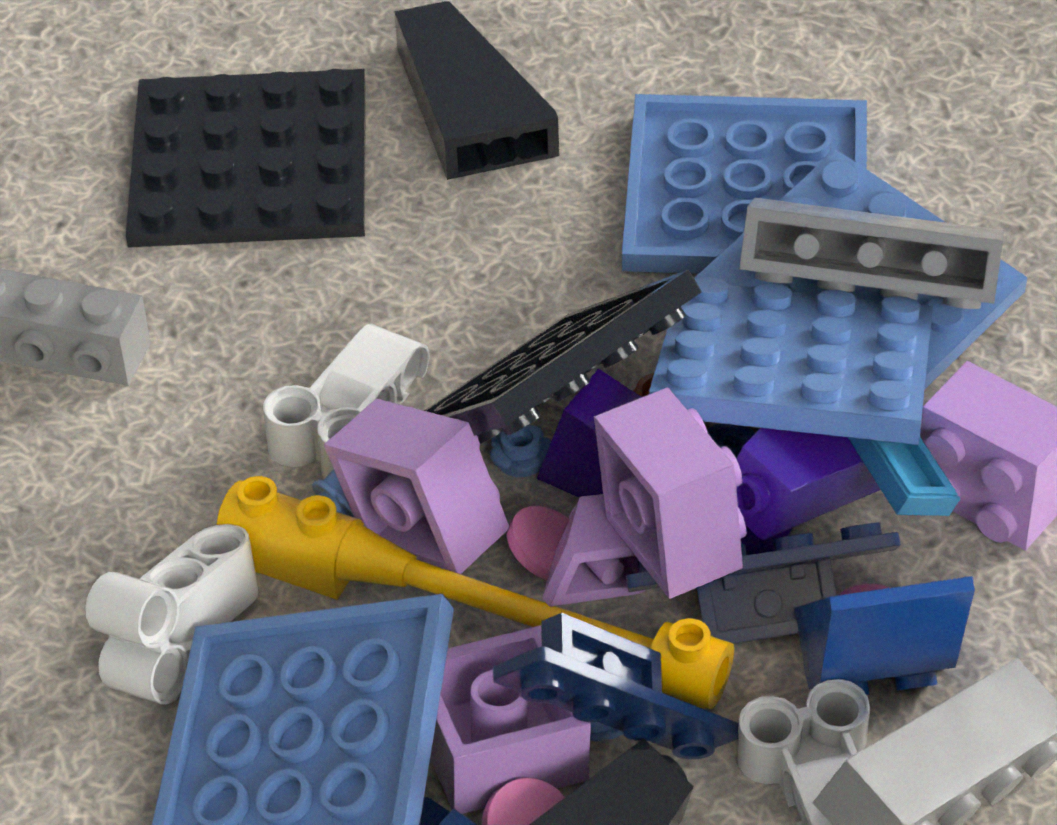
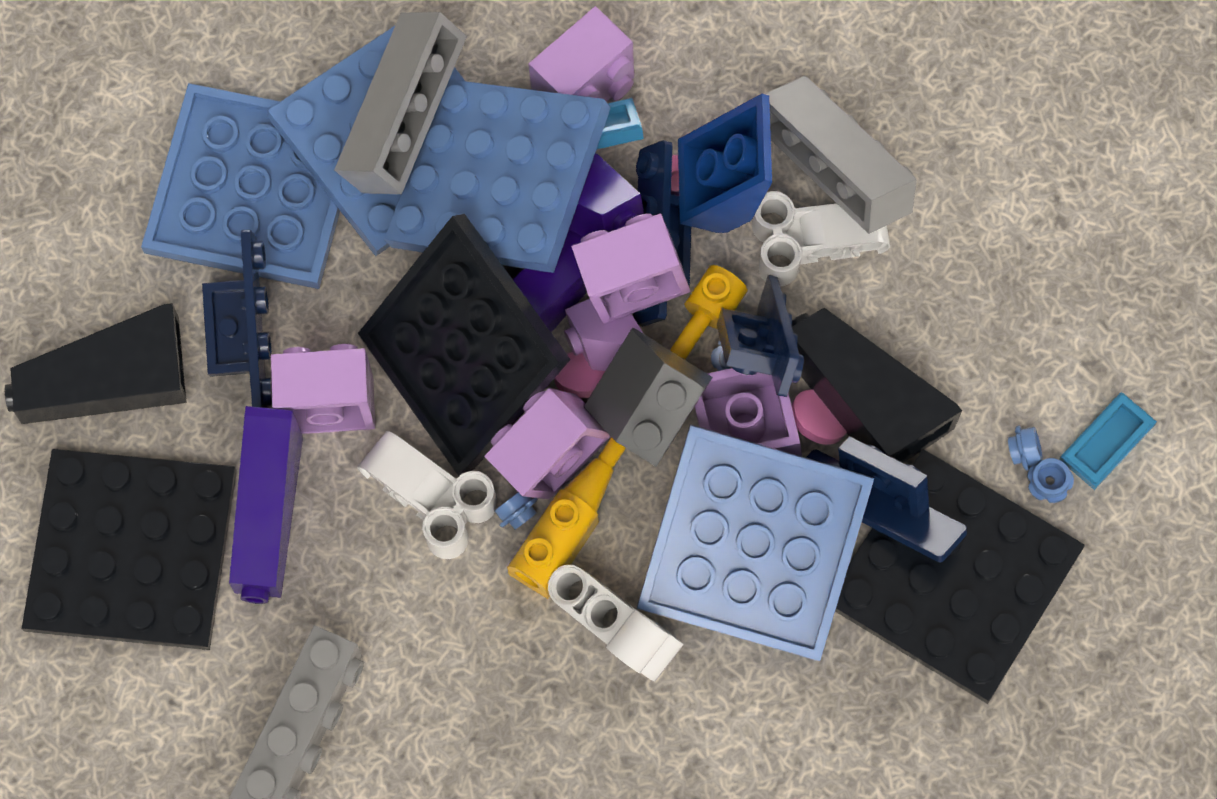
camera: 80 degrees left, 25 degrees up
(312, 241) = (264, 502): none -> dark purple slope
(465, 264) = (325, 388): none -> lavender brick
(492, 570) = (646, 396): none -> dark grey slope
(547, 192) = (235, 324): none -> dark blue bracket

